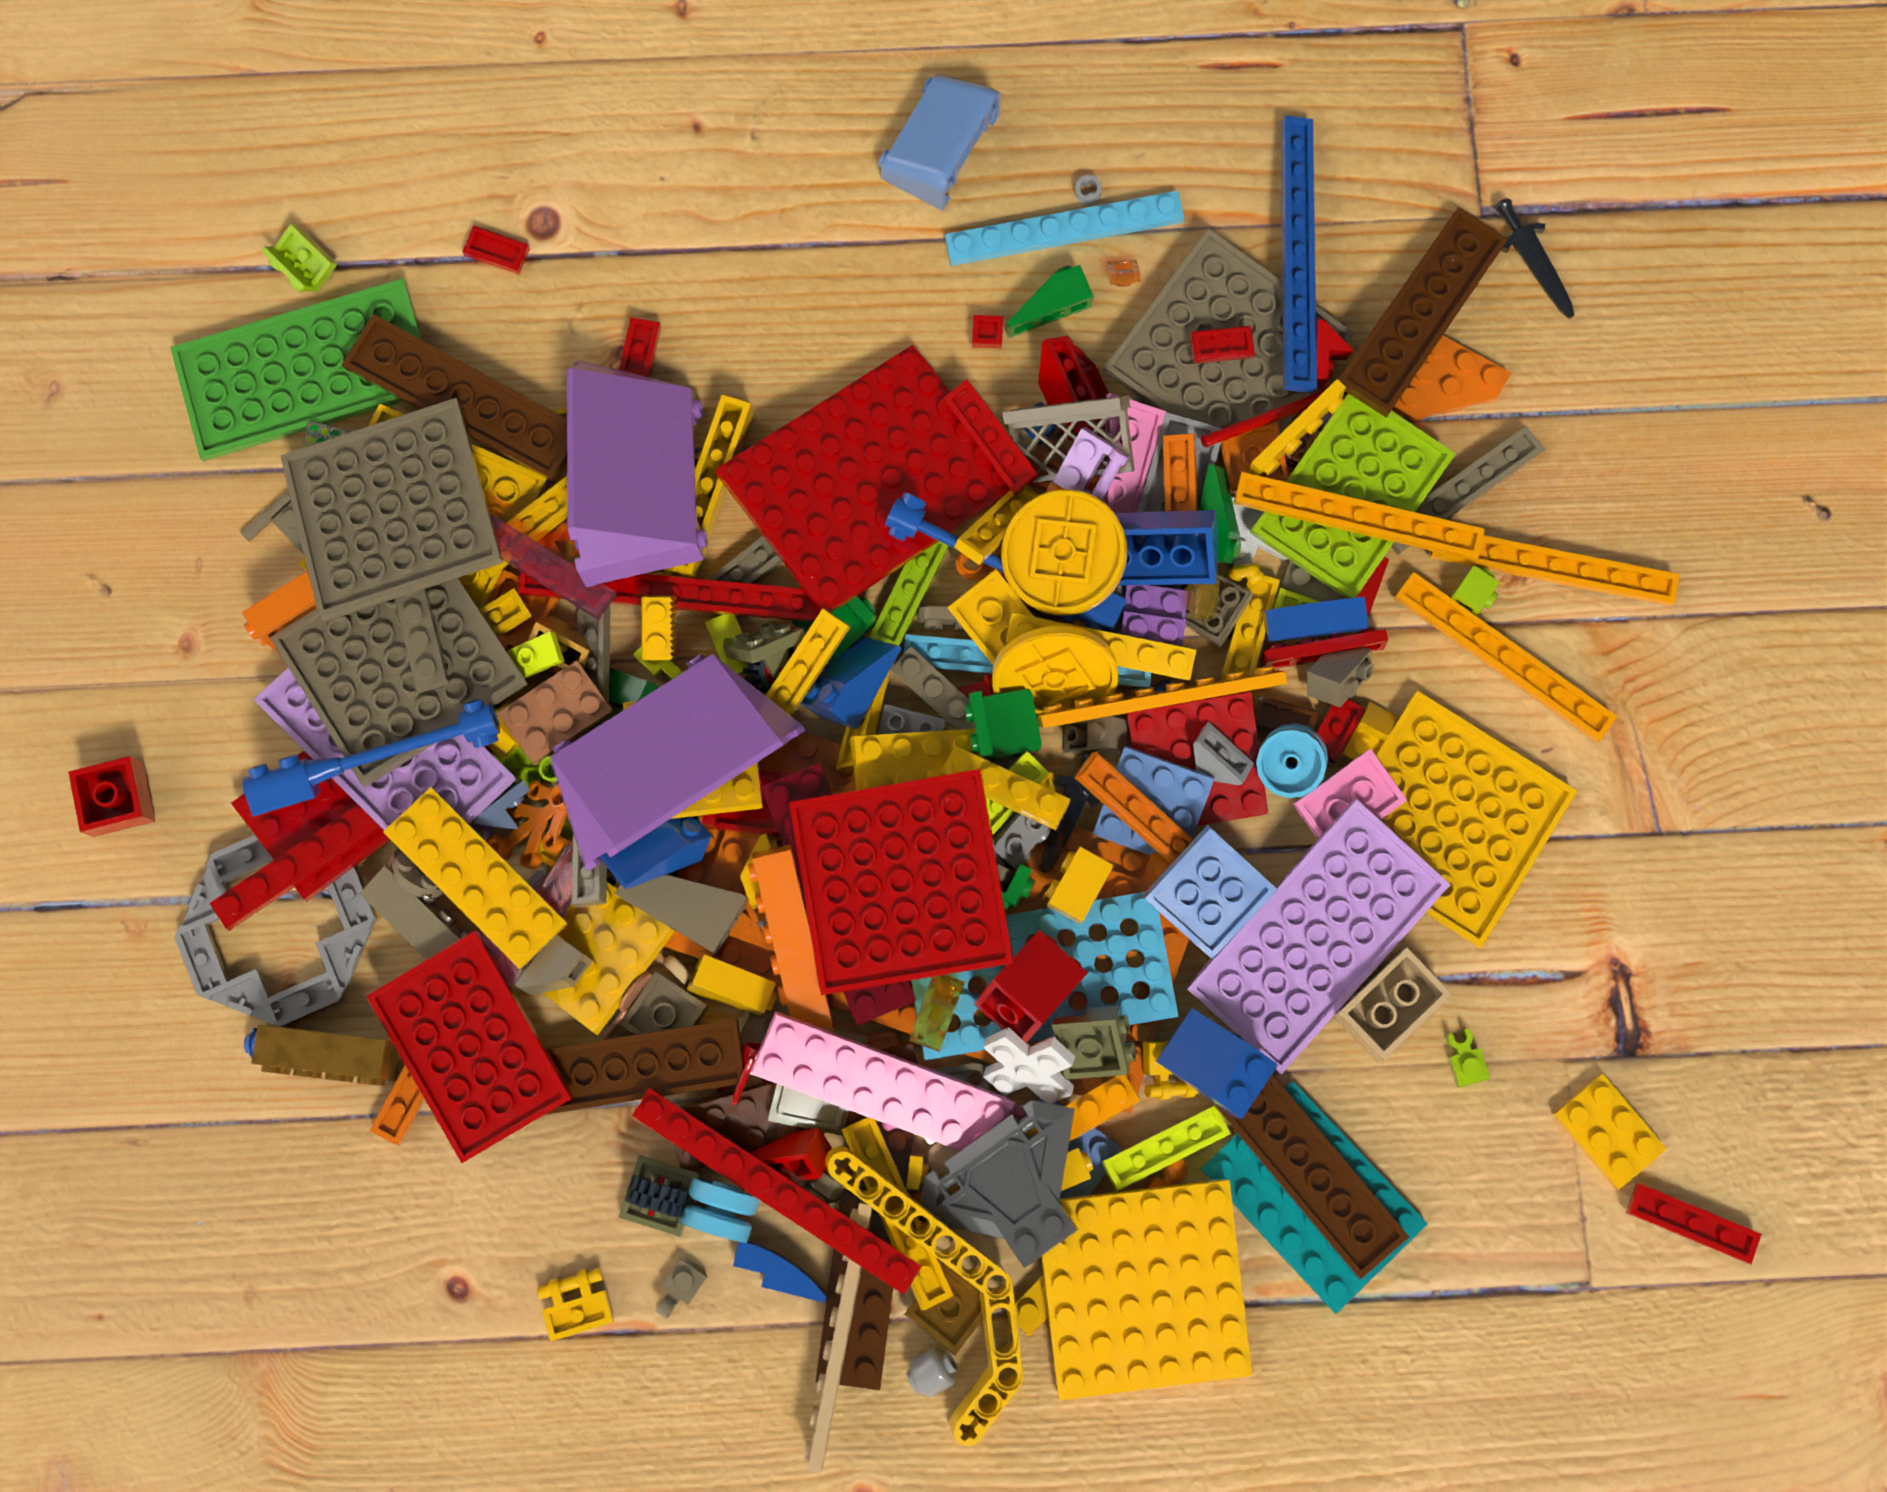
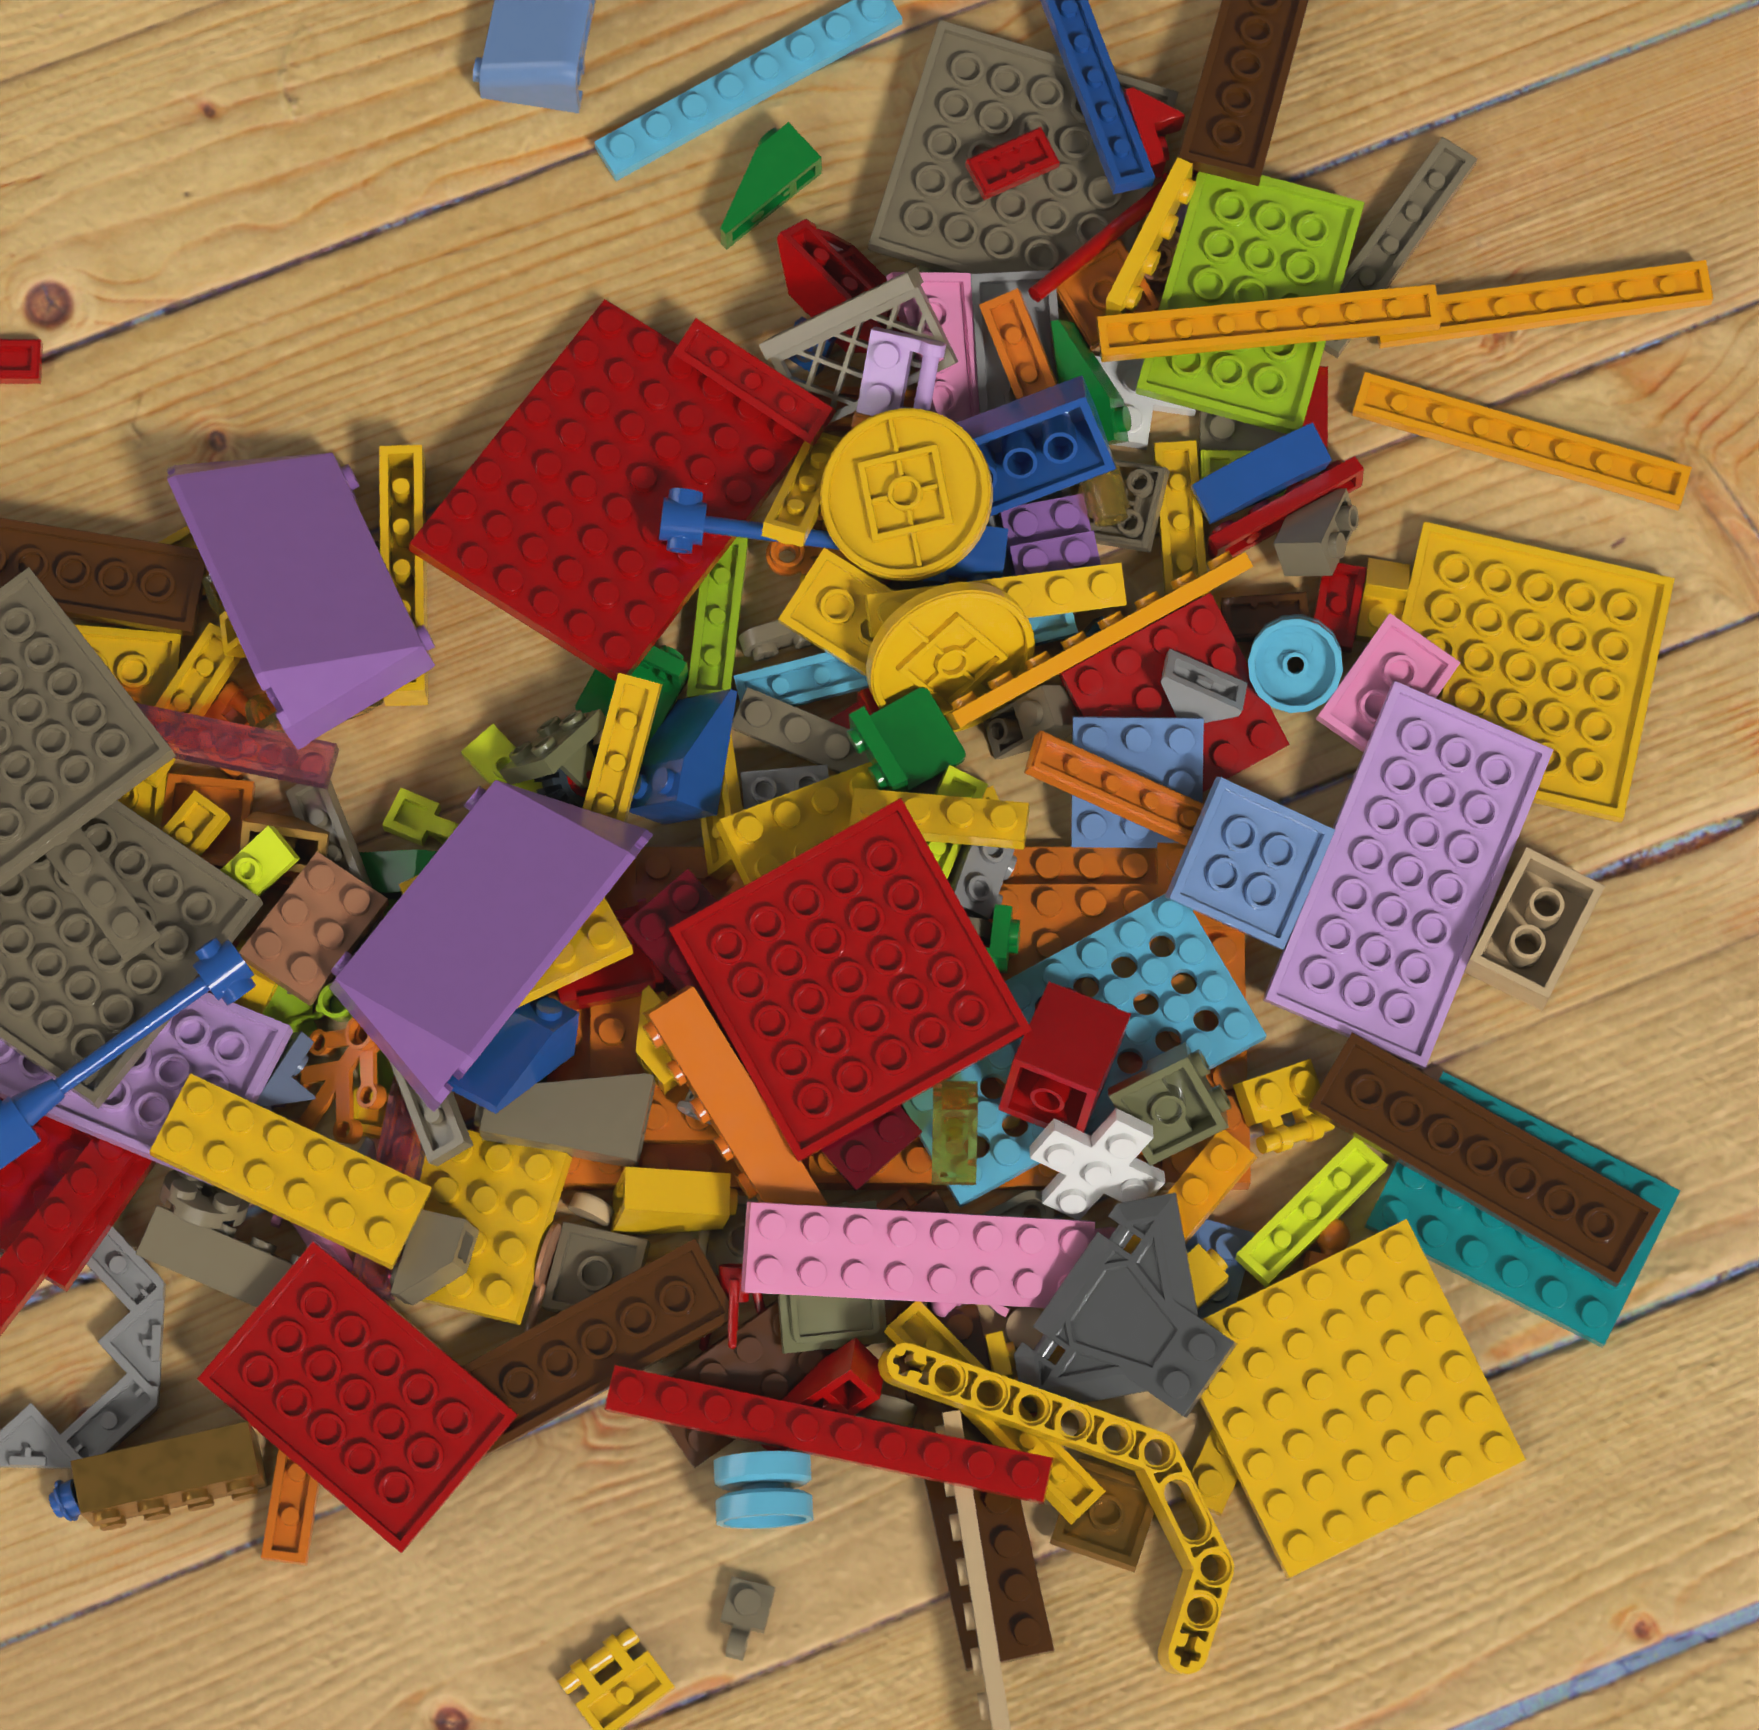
camera: 20 degrees left, 5 degrees down
(640, 346) = (242, 422): red plate -> none
(658, 627) = (408, 773): yellow brick -> none
(658, 1195) = (674, 1506): plate -> none
(703, 596) = (445, 717): red plate -> none
(749, 564) = (489, 666): dark tan plate -> none
(778, 1271) = (868, 1545): blue slope -> none
(932, 1372) = (1113, 1601): light grey head -> none
(987, 331) = (697, 249): red plate -> none
(1058, 838) = (1030, 860): black sword -> none
(1079, 886) = (1080, 905): yellow brick -> none
(1085, 181) = (753, 12): light grey bush -> none
(1123, 272) = (848, 113): clear orange plate -> none
(1216, 1063) = (1337, 1075): blue slope -> none
(1250, 571) = (1153, 441): yellow arm -> none
(1451, 382) = (1325, 114): orange plate -> none
(1468, 1064) = (1658, 973): lime plate -> none
(1476, 590) = (1454, 367): lime brick -> none

